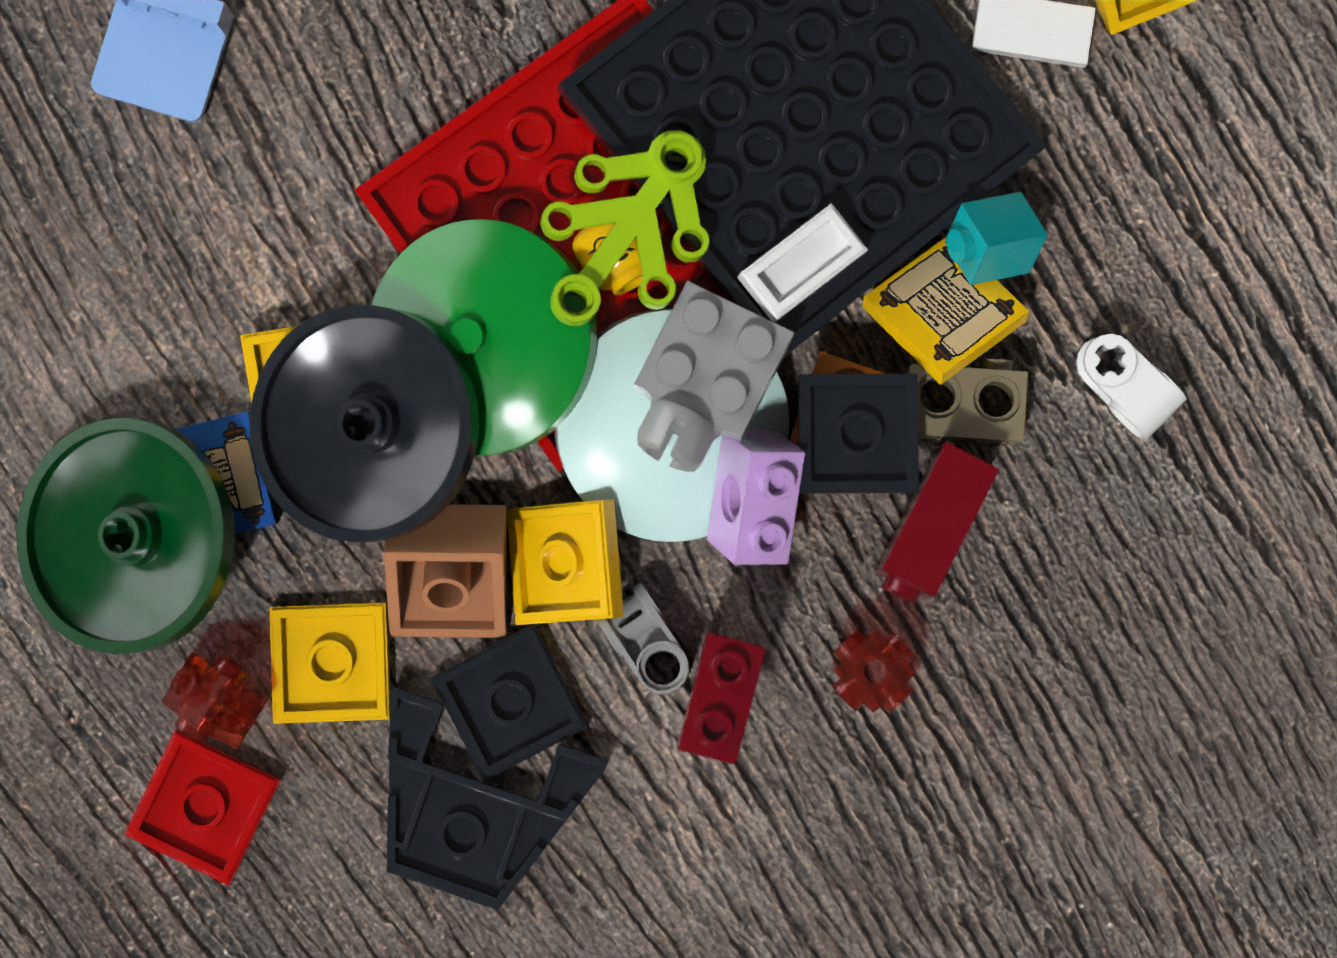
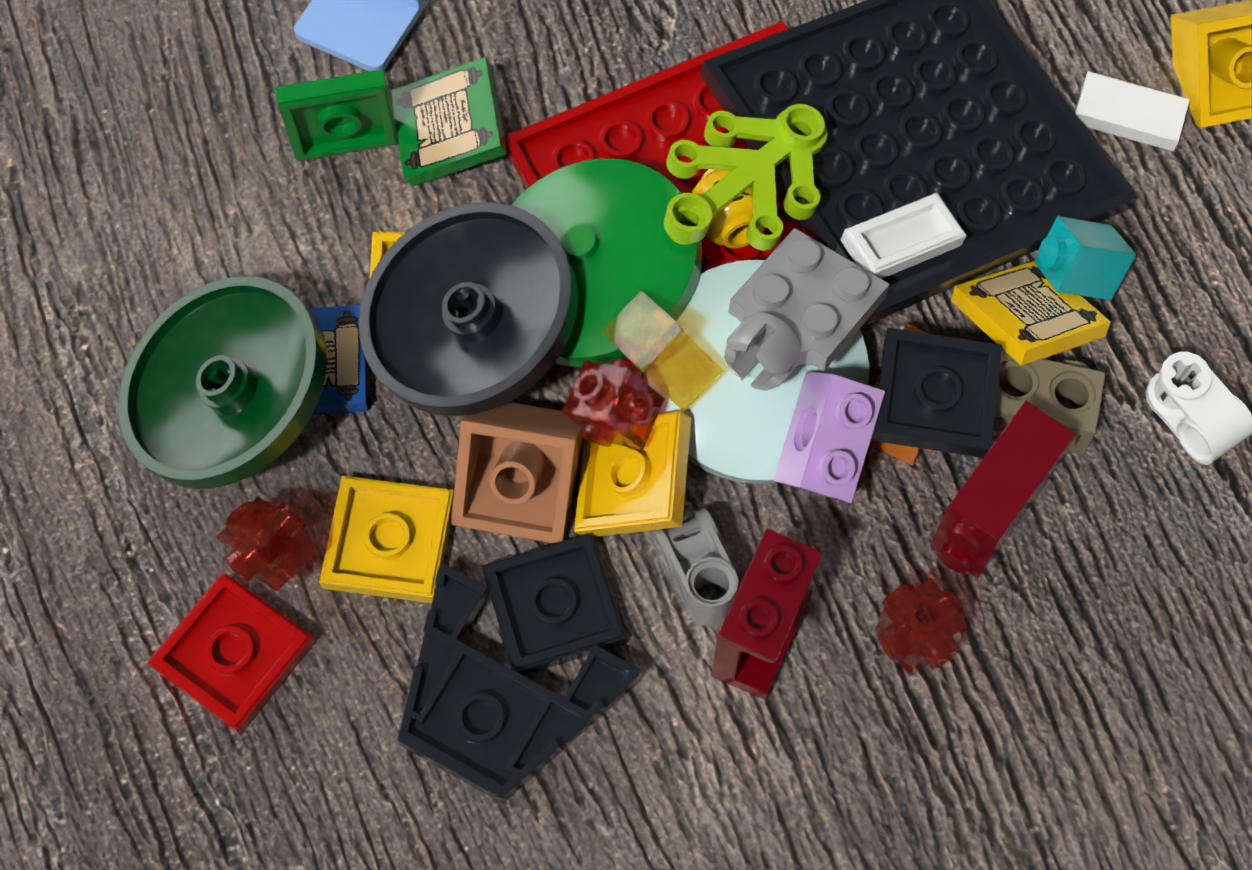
camera: 10 degrees right, 20 degrees down
(172, 206) = (337, 115): none -> green tile
(290, 179) = (448, 122): none -> tile
(532, 506) = (613, 404): none -> clear red brick
(571, 443) = (662, 351): none -> clear yellow slope

